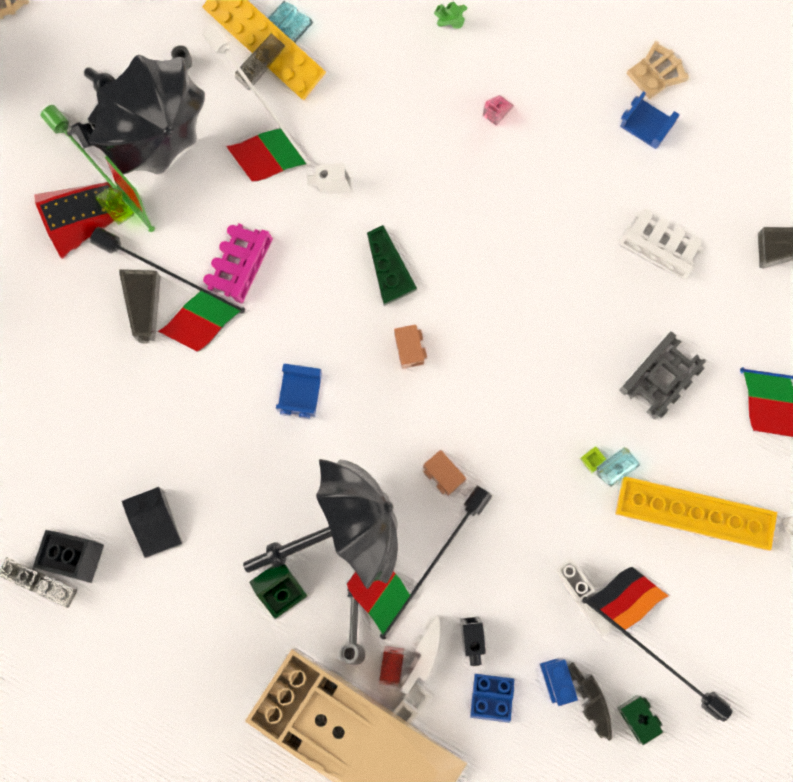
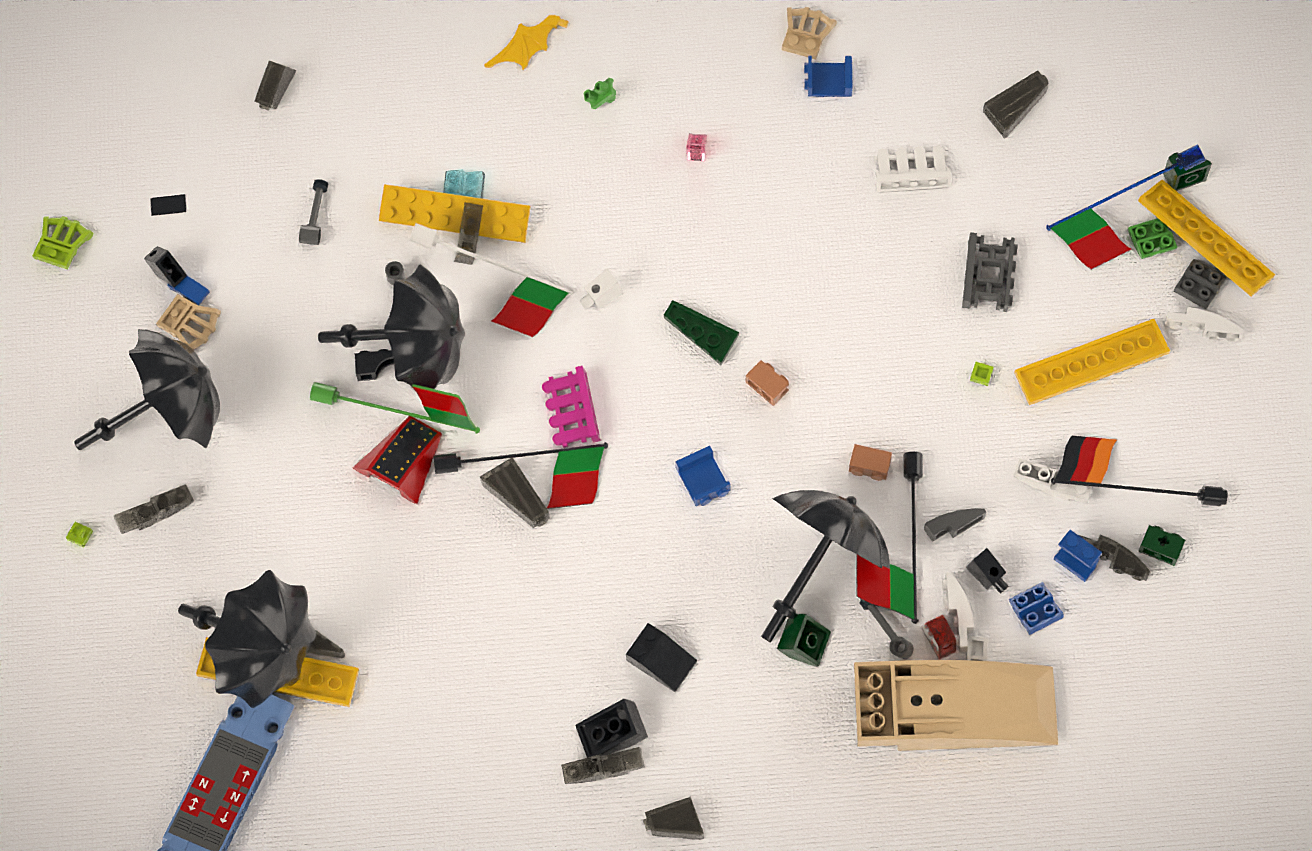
camera: 30 degrees left, 10 degrees down
(60, 671) = (674, 821): none -> clear smoke slope
(83, 133) = (362, 387): black bracket -> none
(115, 206) = (429, 429): clear neon green slope -> none
(476, 574) = (953, 522): none -> dark grey slope
(617, 467) = (1004, 366): clear light blue slope -> none

